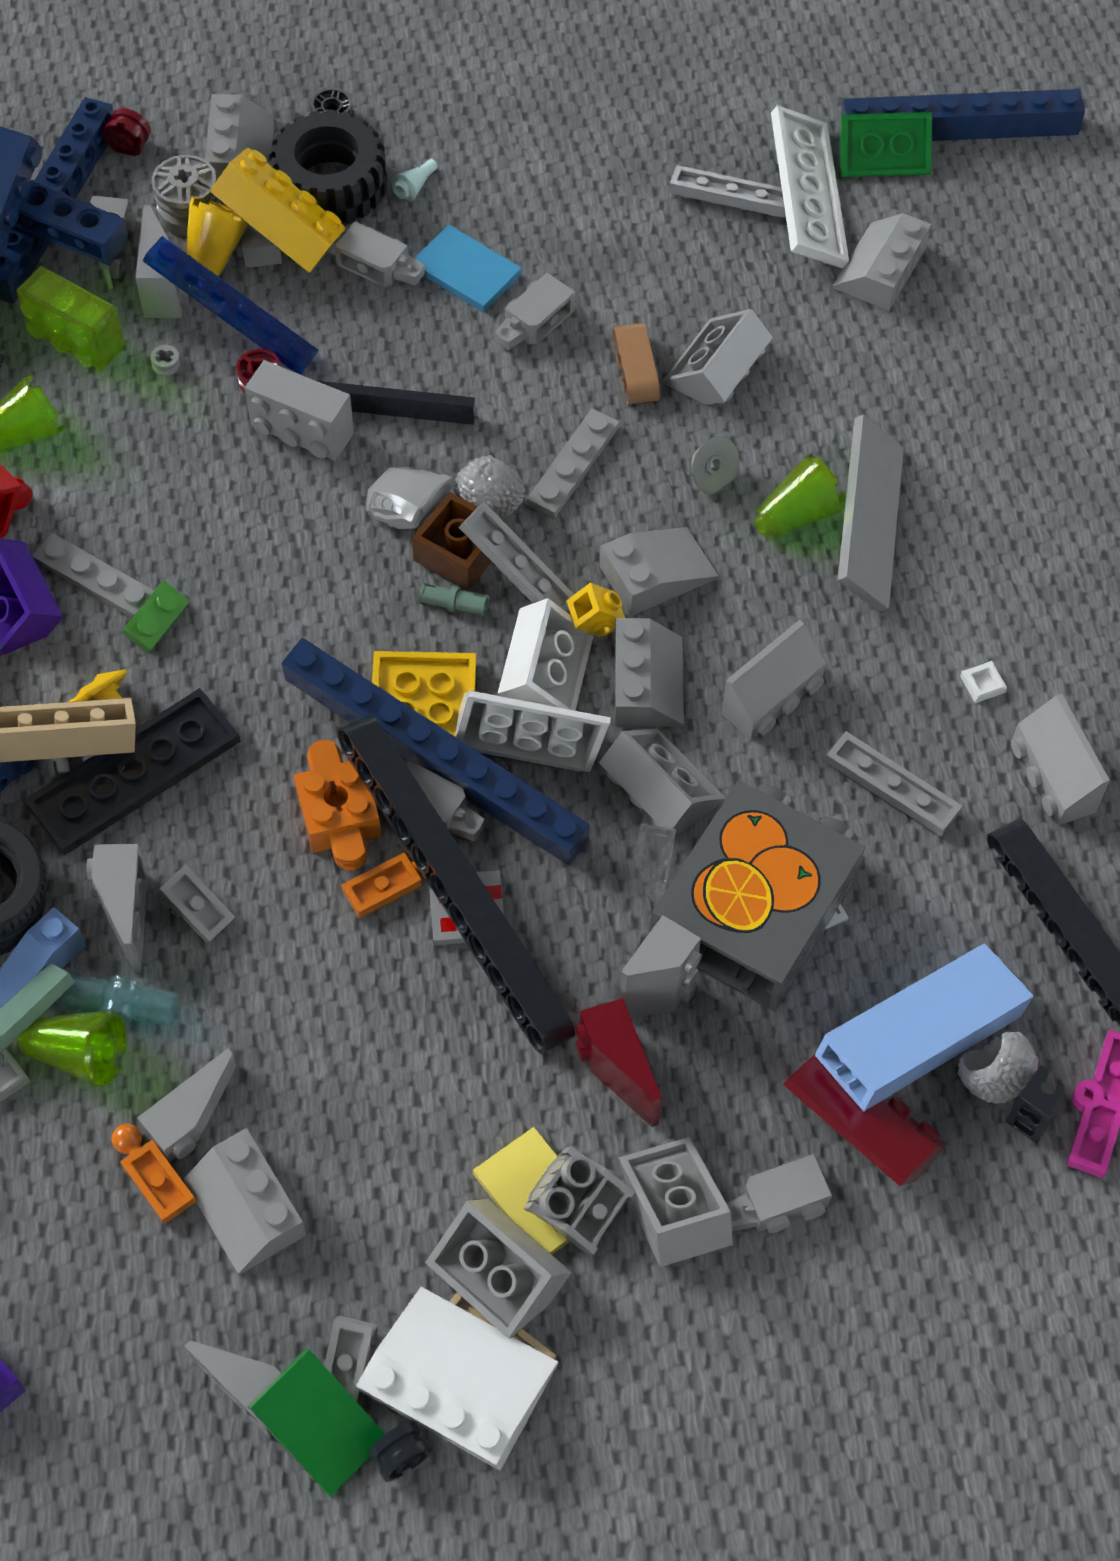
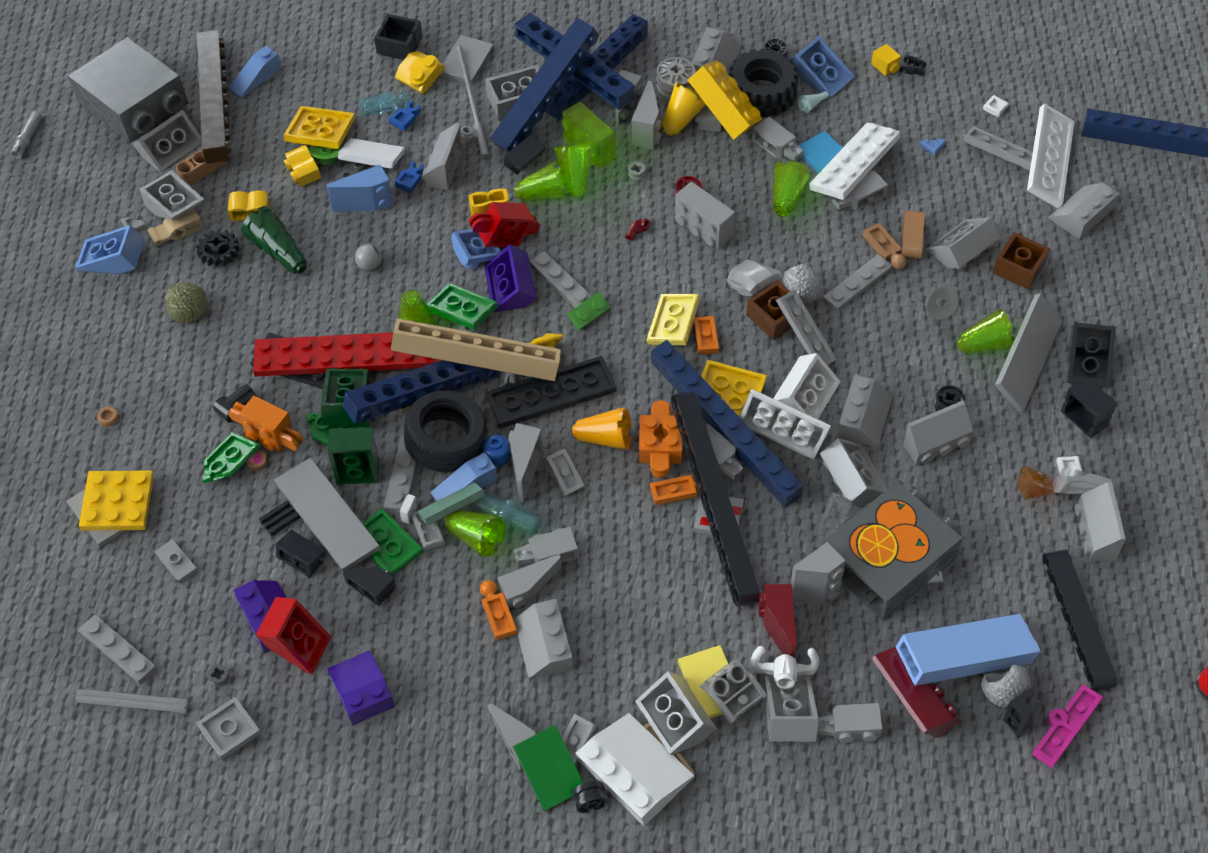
camera: 20 degrees right, 5 degrees down
(63, 377) = (574, 166): none -> clear neon green cone
(71, 895) = (497, 449): none -> blue head
(127, 132) = (652, 38): dark red wheel -> none
(193, 455) = (637, 227): none -> dark red arm
(204, 1039) = (547, 545): none -> light grey hinge
(230, 305) = (682, 147): clear blue plate -> none
(242, 812) = (605, 429): none -> light orange cone
(298, 596) = (673, 319): none -> light yellow tile
(359, 610) = (706, 335): none -> orange plate
(408, 403) = (770, 226): black tile -> none
(415, 121) = (822, 67): none -> medium blue slope
(419, 330) = (788, 186): none -> clear neon green cone
(454, 599) = (763, 342): sand green pin -> none
(511, 87) = (886, 60): none -> yellow brick
(511, 264) = (854, 160): none -> white plate
(557, 81) = (915, 62): none -> black piece
(595, 609) = (844, 367): yellow brick -> none
(599, 392) = (885, 245): none -> medium nougat plate
(623, 211) = (932, 146): none -> medium blue tile
(648, 1137) = (785, 667): none -> white piece
(654, 567) = (888, 352): light grey slope -> none
(701, 125) = (995, 106): none -> white tile
(769, 609) = (948, 396): none -> black wheel
(815, 367) = (1021, 260): none -> reddish brown brick
(885, 144) = (1106, 141): green tile -> none
(893, 783) = (994, 511): light grey plate -> none
(939, 724) = (1033, 483): none -> clear orange slope
(963, 493) = (1091, 353): none -> black slope
(987, 578) = (1088, 406): none -> black piece
(1005, 706) = (1076, 481): none -> light grey slope

